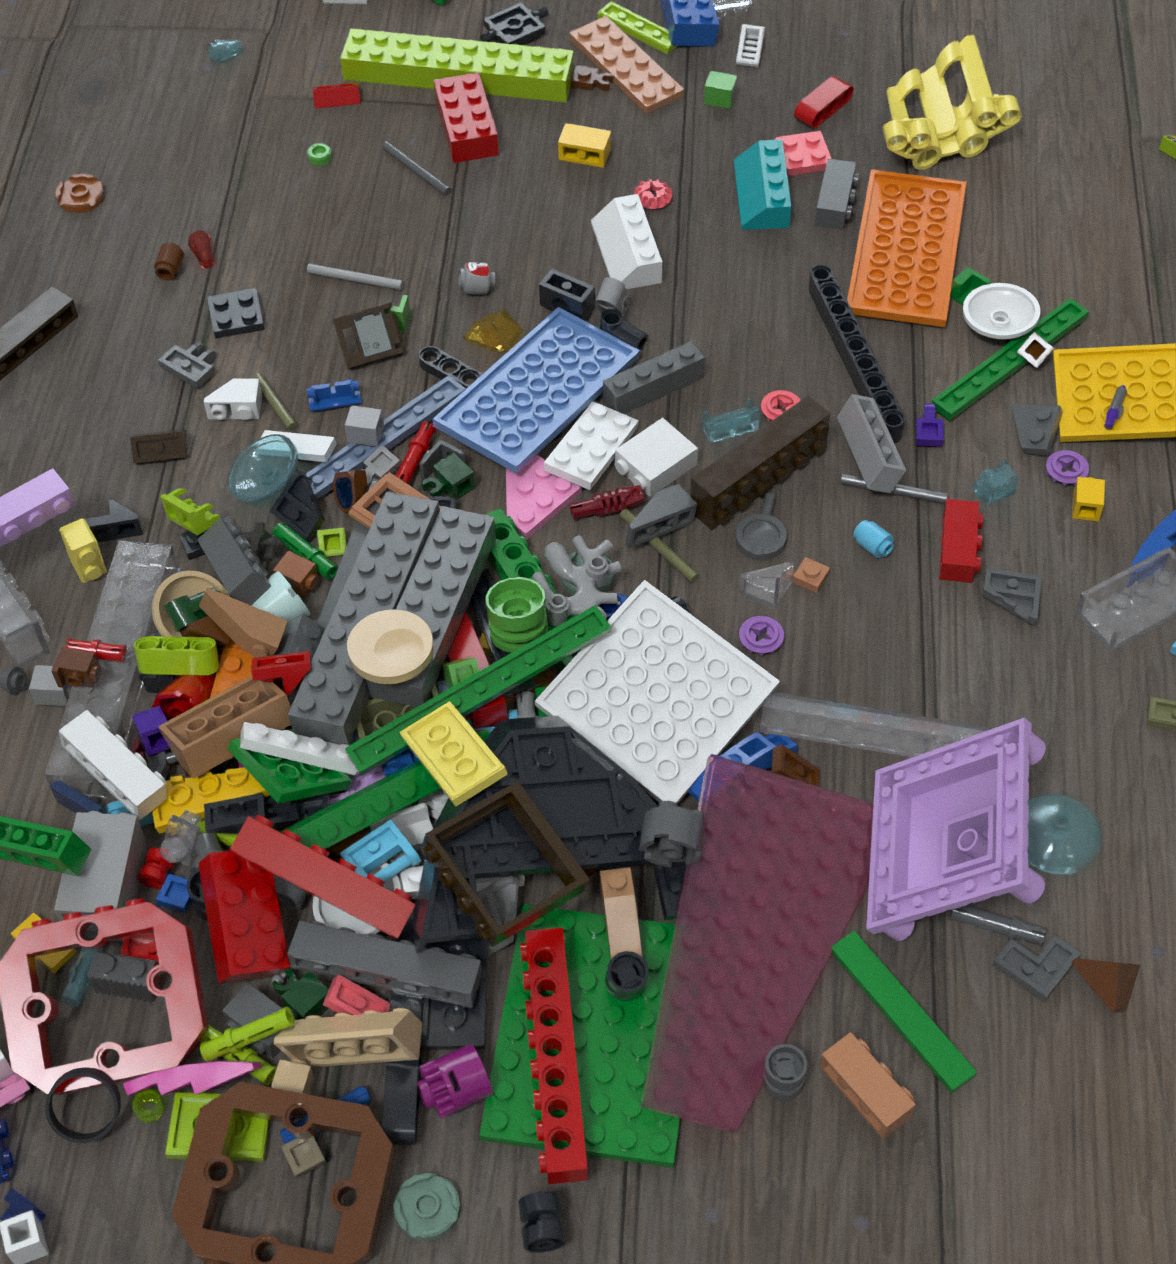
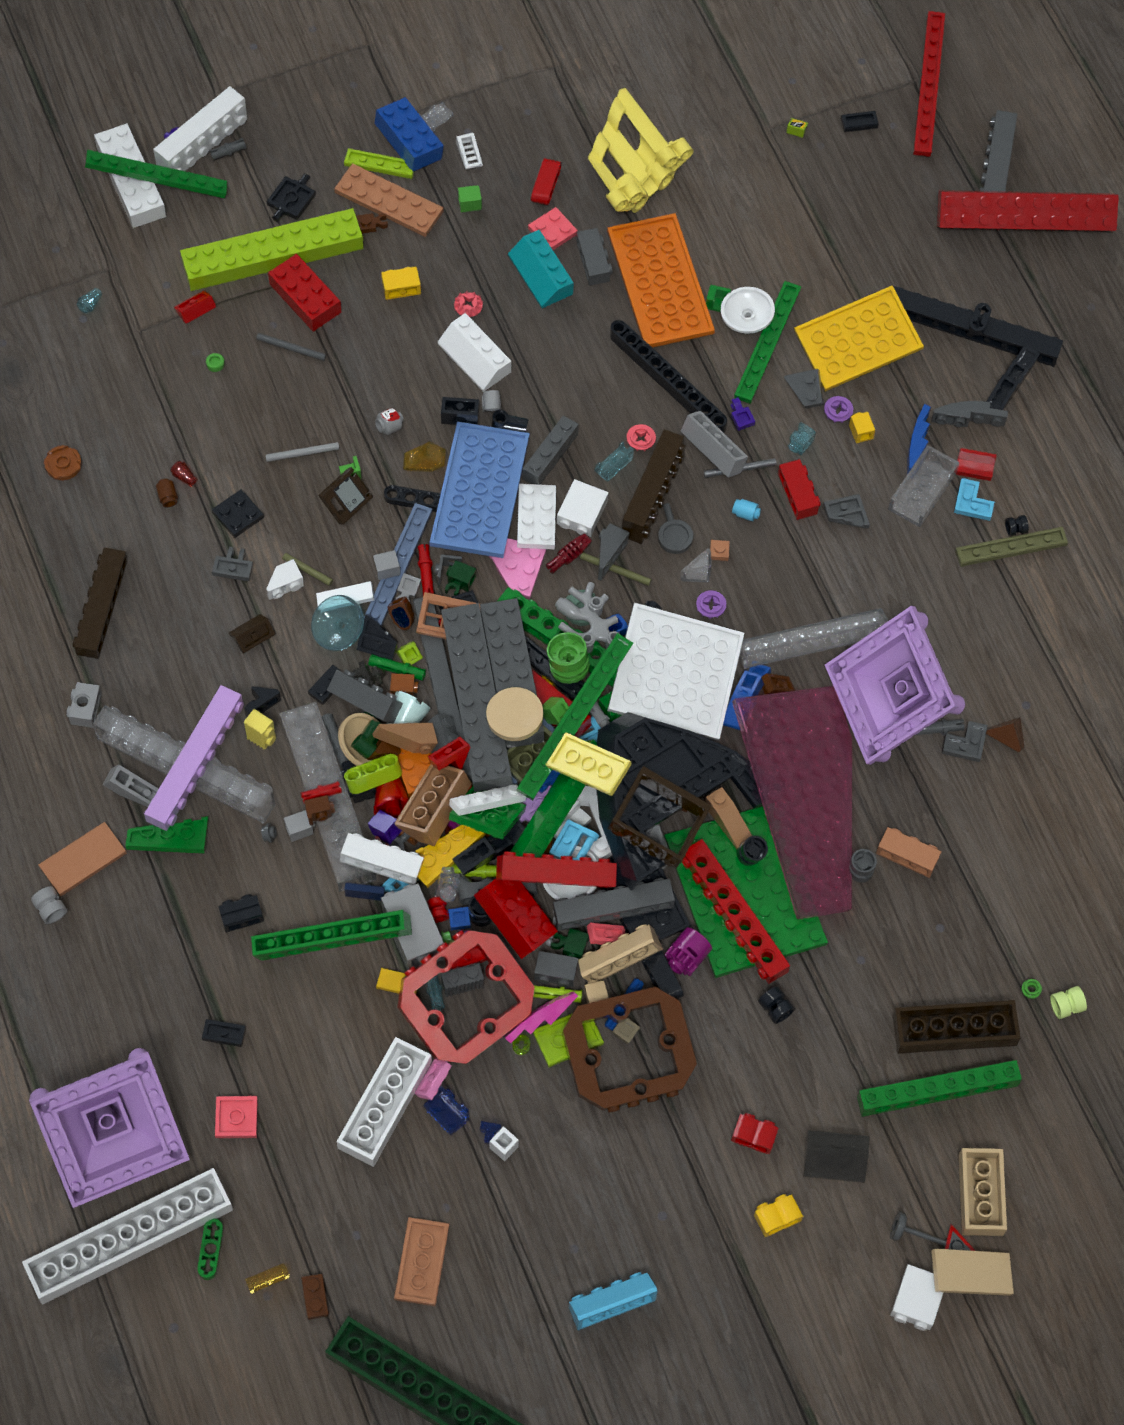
camera: 30 degrees left, 10 degrees up
(82, 1137) = (506, 1069): black tyre -> none
(188, 514) = (308, 674): lime hinge -> none
(235, 1039) = (552, 986): lime pin -> none
(327, 397) = (346, 549): blue hinge -> none
(426, 1207) = (708, 1026): sand green tile -> none
(672, 834) = (740, 758): dark grey brick -> none
(903, 1012) = (906, 801): green tile -> none
(1035, 350) = (782, 331): slope -> none
(1062, 847) = (955, 660): clear light blue dish -> none
(1116, 408) = (852, 356): piece -> none

